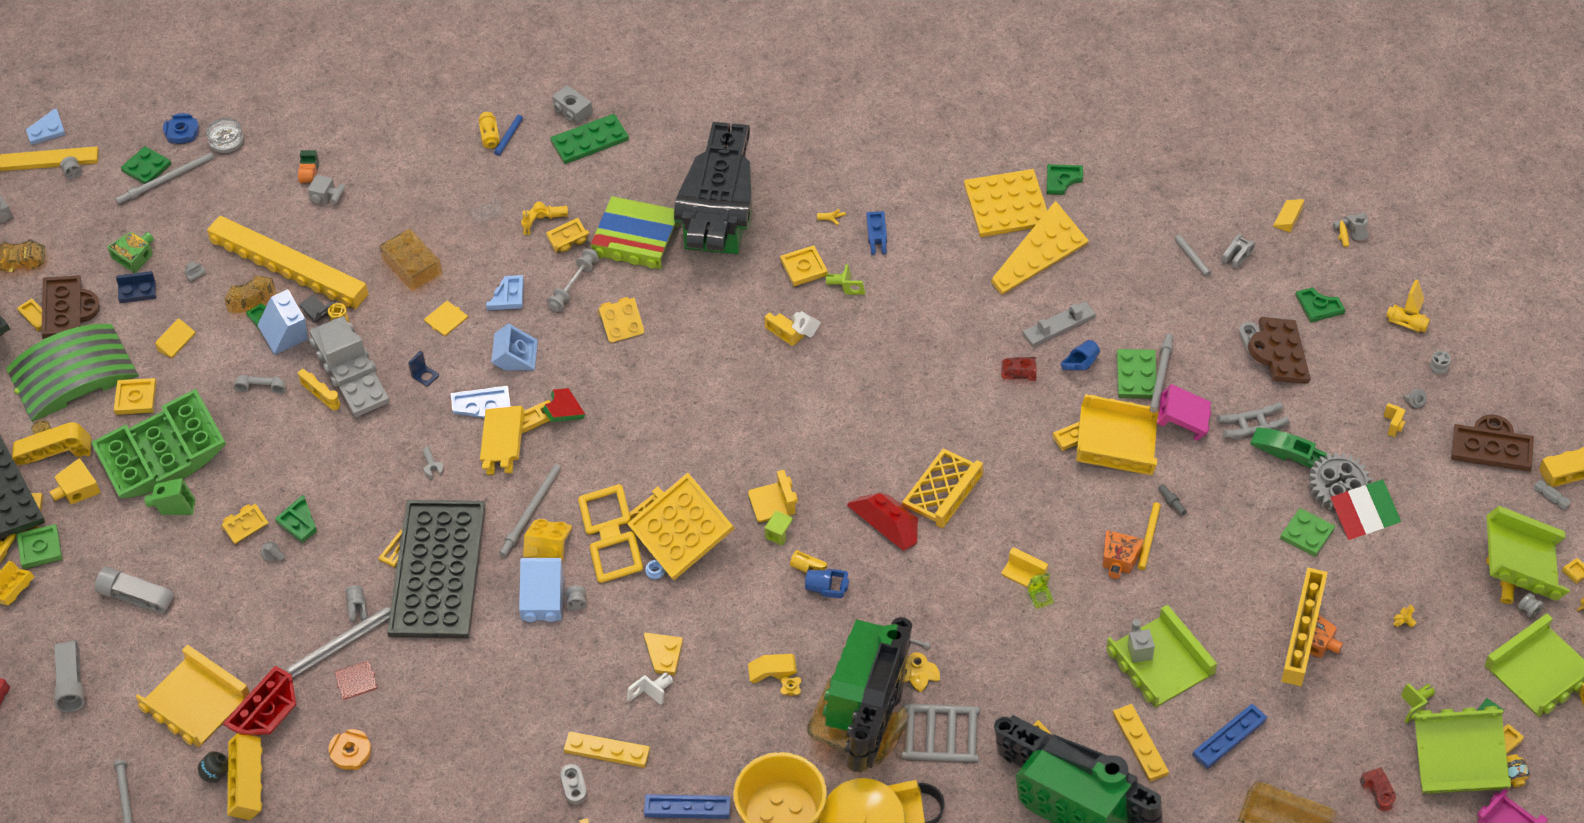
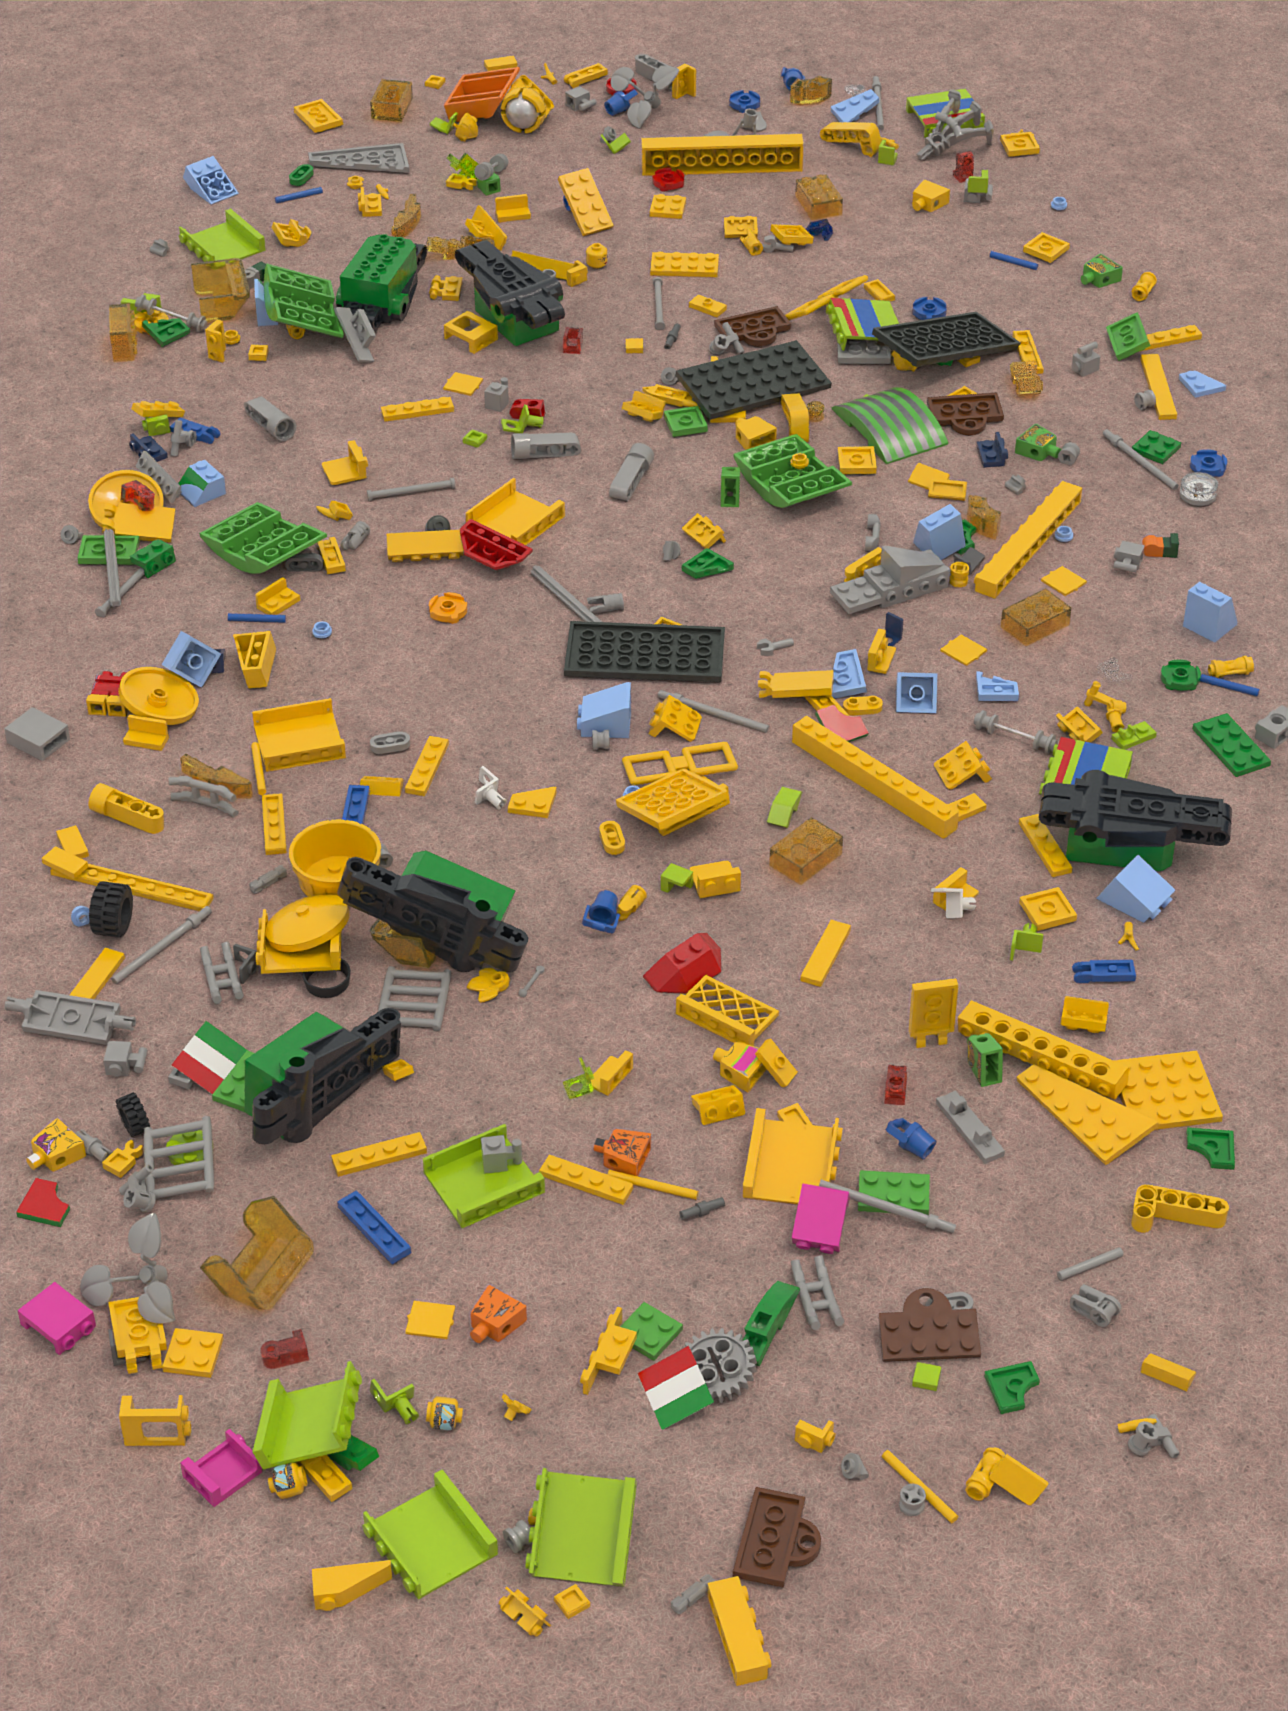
camera: 90 degrees right, 10 degrees down
(15, 701) = (524, 420): none -> lime bracket
(34, 750) = (474, 438): none -> lime tile
(144, 436) = (799, 461): none -> yellow plate
(155, 228) = (1069, 449): none -> light grey wheel
(196, 323) = (947, 489): none -> yellow tile
(279, 236) = (1064, 534): none -> light blue plate
(347, 242) = (1063, 581): none -> yellow piece
(355, 680) = (525, 610): clear red piece -> none
(422, 135) = (1209, 612): none -> light blue slope
(456, 376) = (880, 654): none -> yellow bracket
(488, 169) = (1189, 679): none -> green plate
(526, 391) = (863, 705): none -> yellow plate
(575, 201) = (1133, 735): none -> lime plate
(634, 382) = (875, 777): none -> yellow brick
(635, 787) = (383, 785): none -> yellow slope
(670, 445) = (783, 807): none -> lime slope
(672, 321) = (968, 806): none -> yellow plate
(717, 584) = (612, 837): none -> yellow plate
(720, 266) = (1045, 846): none -> yellow plate
(738, 430) = (806, 851): none -> clear yellow brick
(772, 665) = (504, 872): yellow slope -> none
(784, 206) = (1138, 891): none -> light blue slope
(862, 419) = (825, 953): none -> yellow tile
(933, 245) = (1084, 1014): none -> yellow bracket
(960, 292) = (1045, 1050): none -> yellow brick
(962, 328) = (933, 1010): none -> yellow tile
(990, 307) = (983, 1052): none -> bright green torso
(1010, 446) = (776, 1063): none -> yellow plate
(1010, 473) = (740, 1065): none -> yellow torso
(1053, 490) = (719, 1104): none -> yellow bracket
(1131, 214) = (1176, 1206): none -> yellow beam
(1150, 583) = (586, 1179): none -> yellow plate
(1304, 627) = (489, 1281): yellow brick -> none
(1320, 354) = (926, 1376): none -> lime tile
(1320, 688) = (430, 1319): none -> yellow piece
(1340, 552) = (612, 1350): none -> yellow bracket
(1422, 361) = (911, 1478): none -> yellow bar
(1425, 663) = (444, 1413): none -> head

